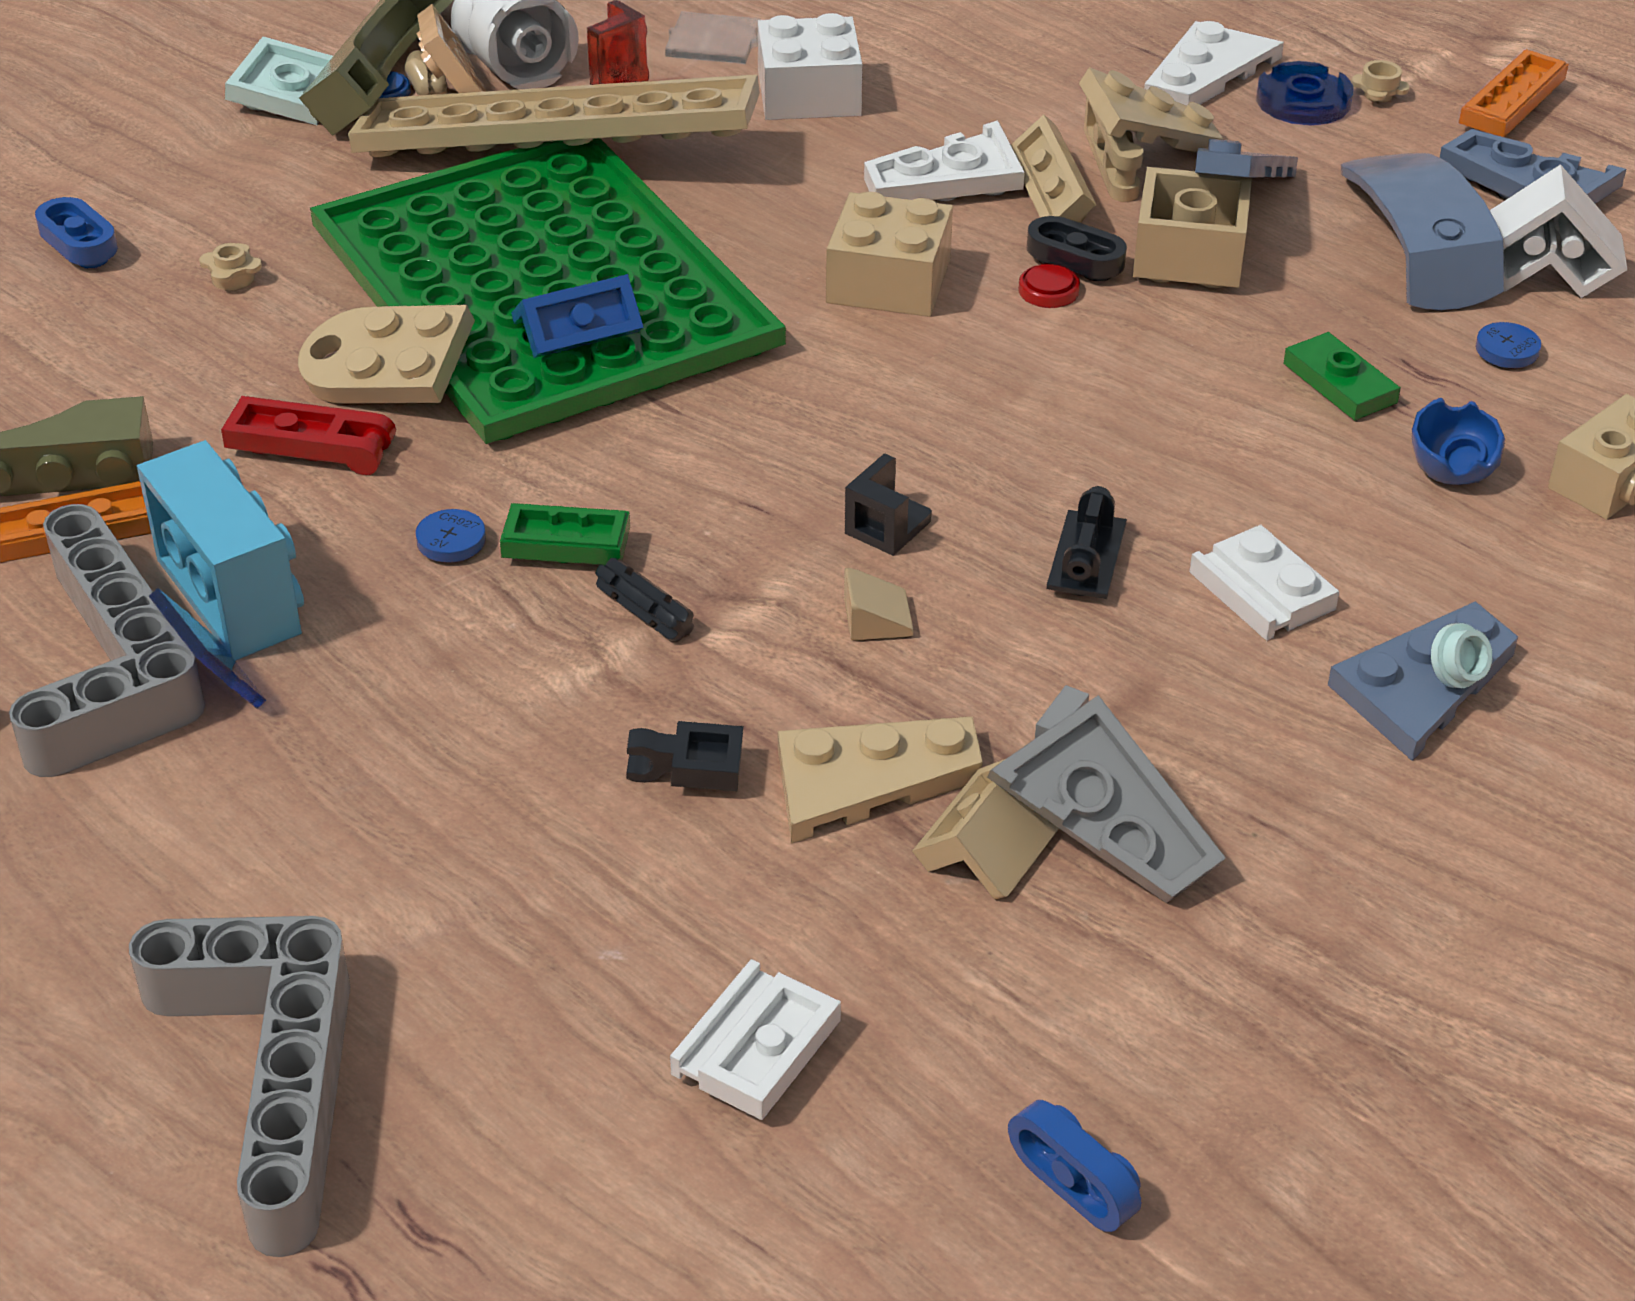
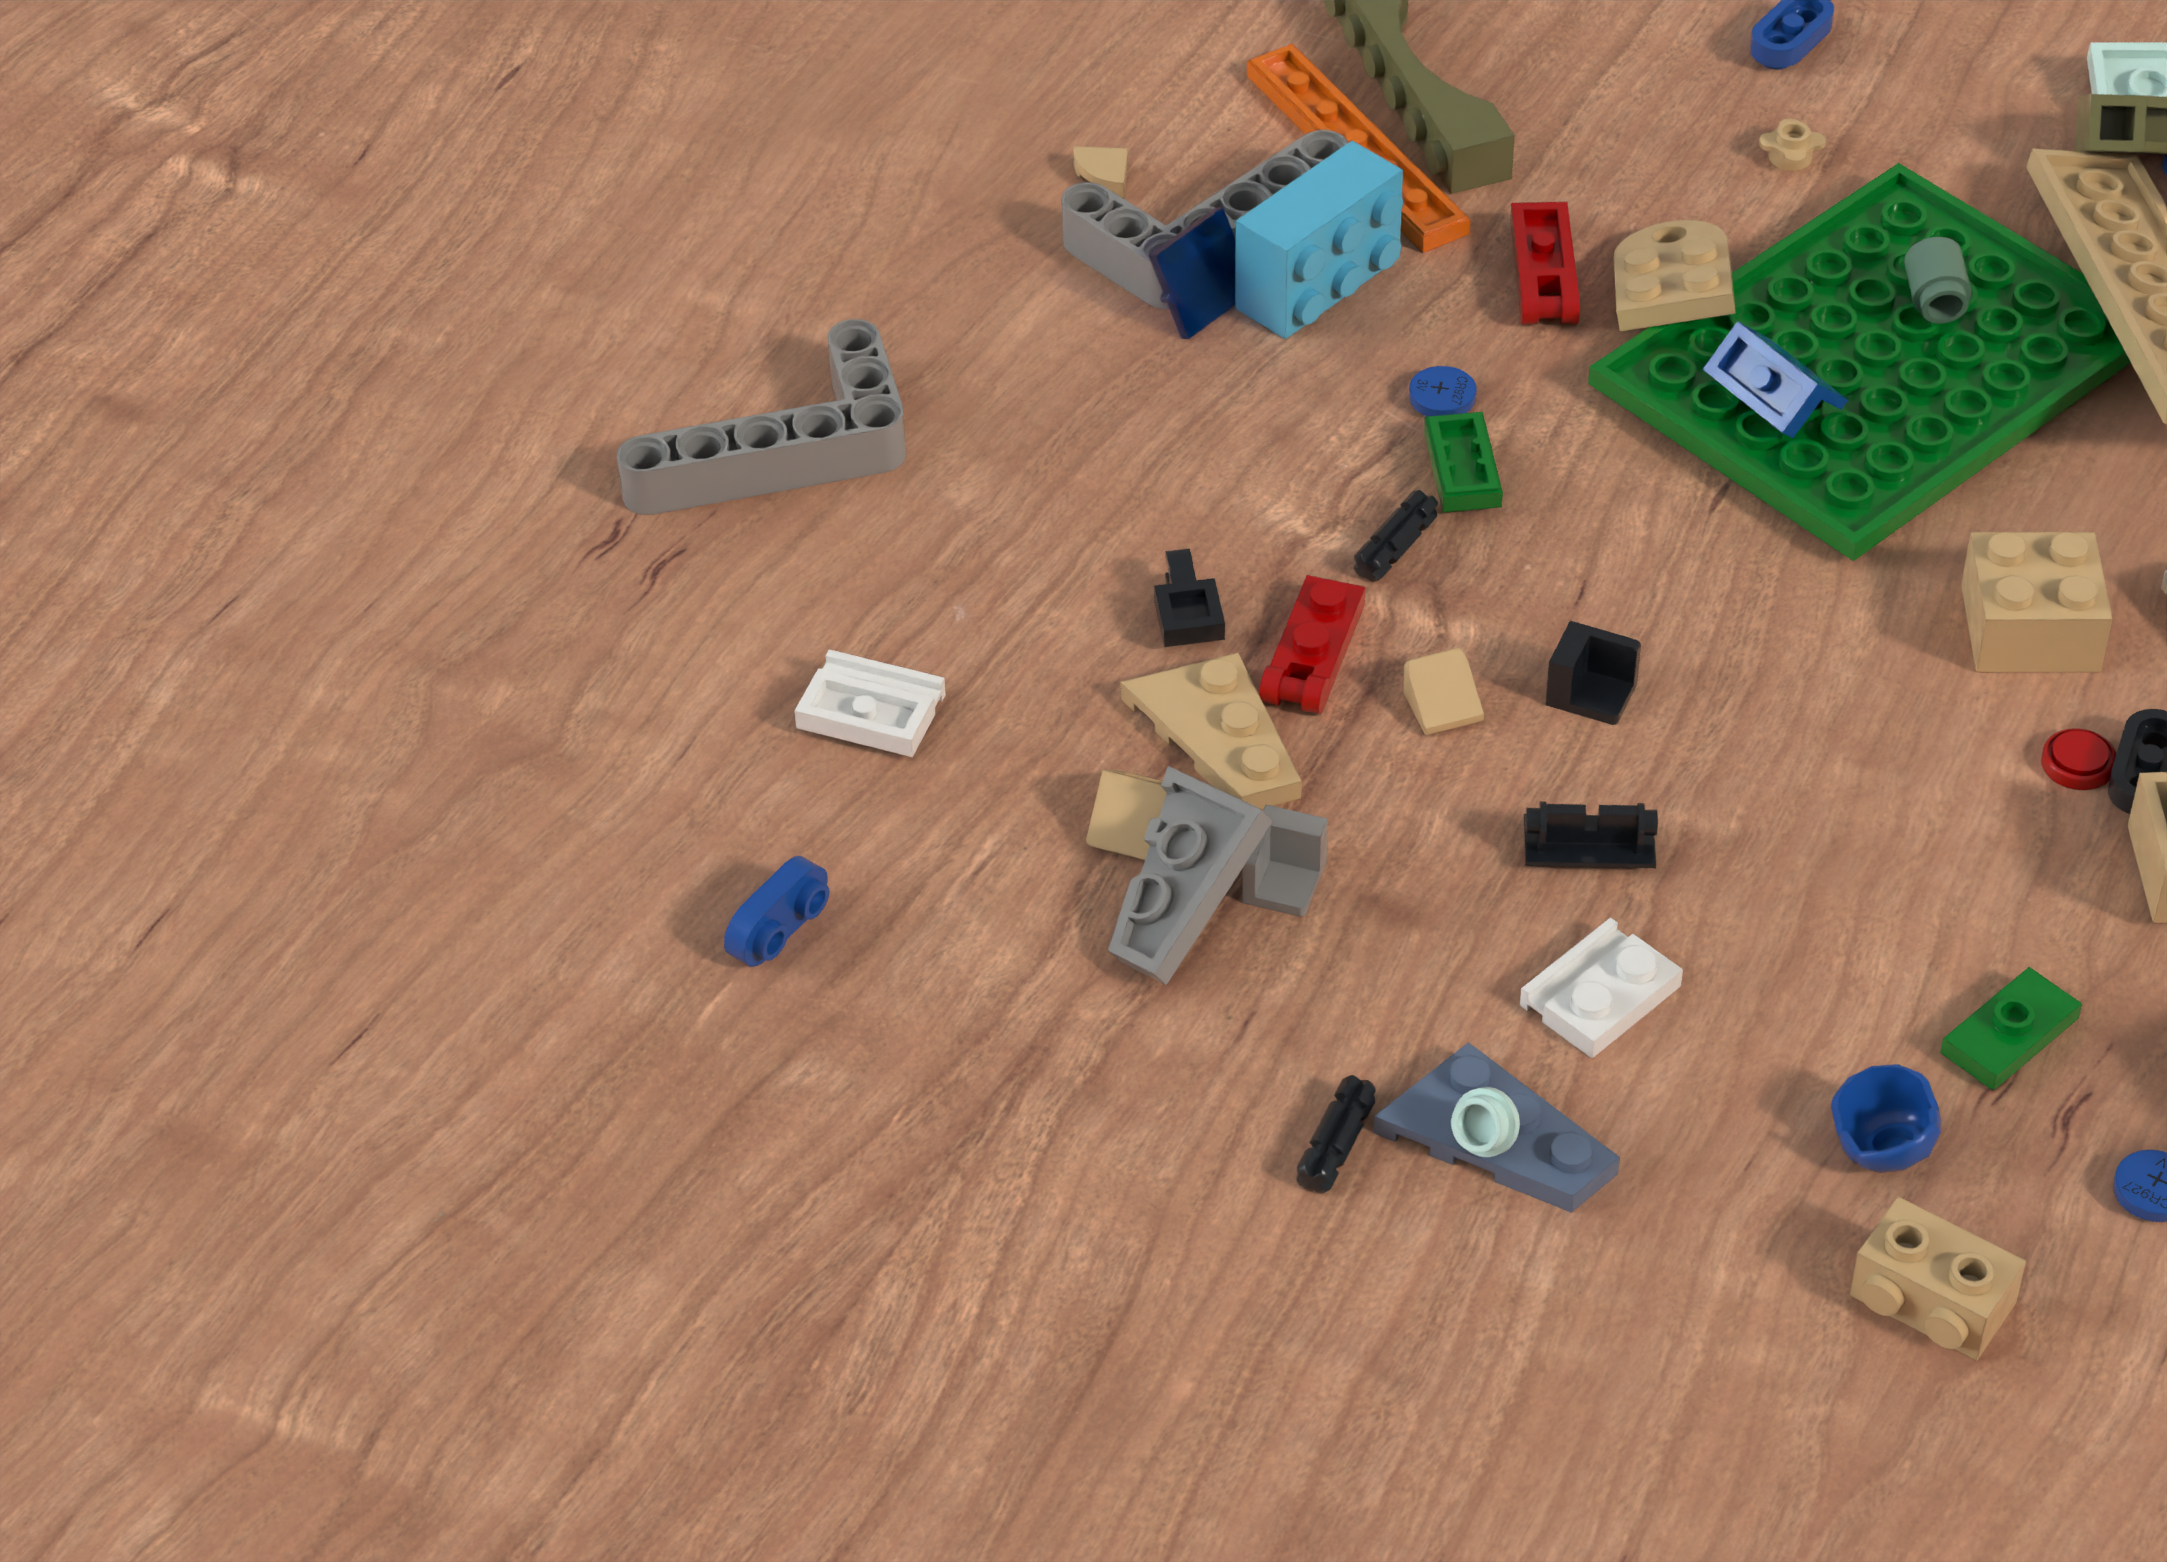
camera: 80 degrees right, 5 degrees up
(496, 205) = (1938, 279): none -> sand green brick
(774, 682) = (1313, 644): none -> red plate
(1429, 776) = (1336, 1134): none -> black axle

